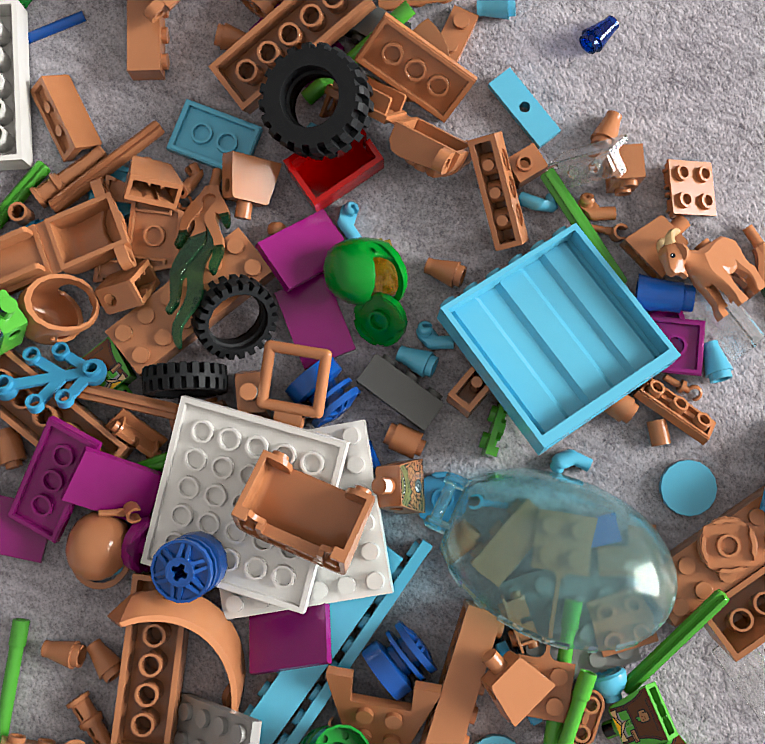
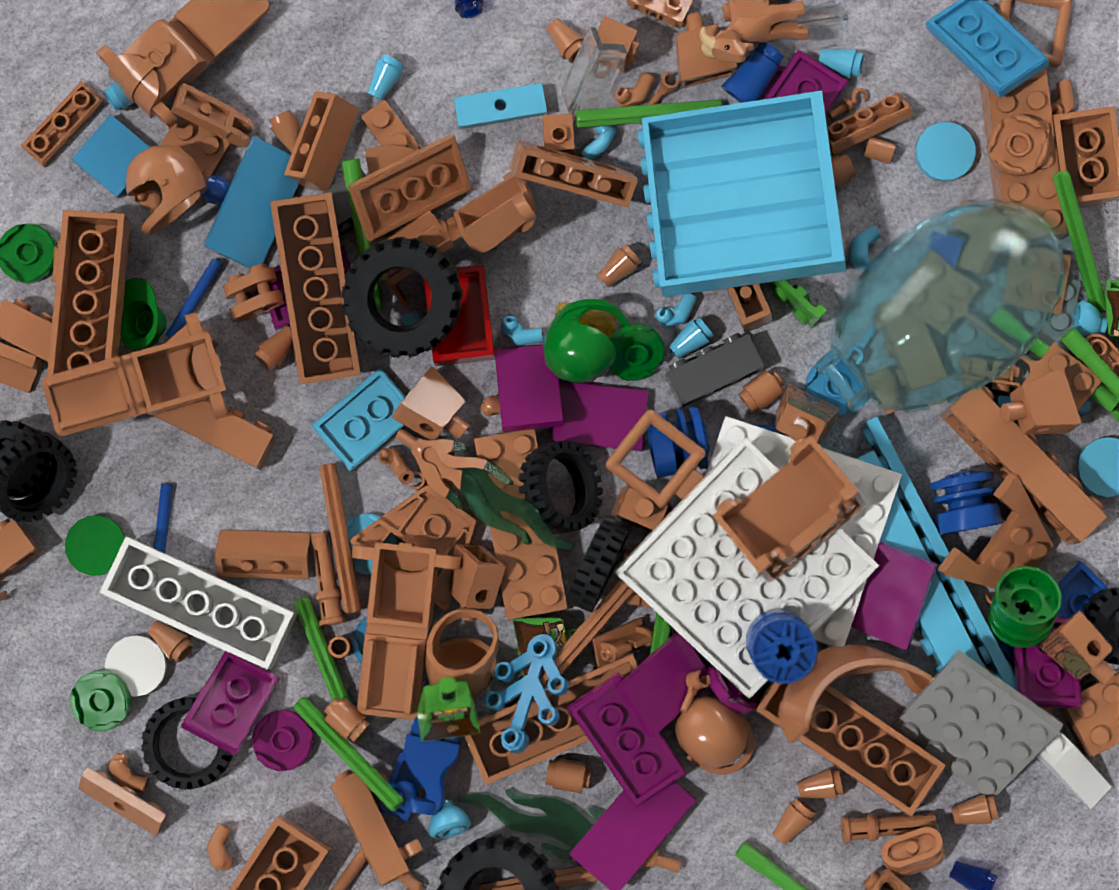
camera: 65 degrees left, 0 degrees up
(152, 183) = (384, 499): nougat torso -> none

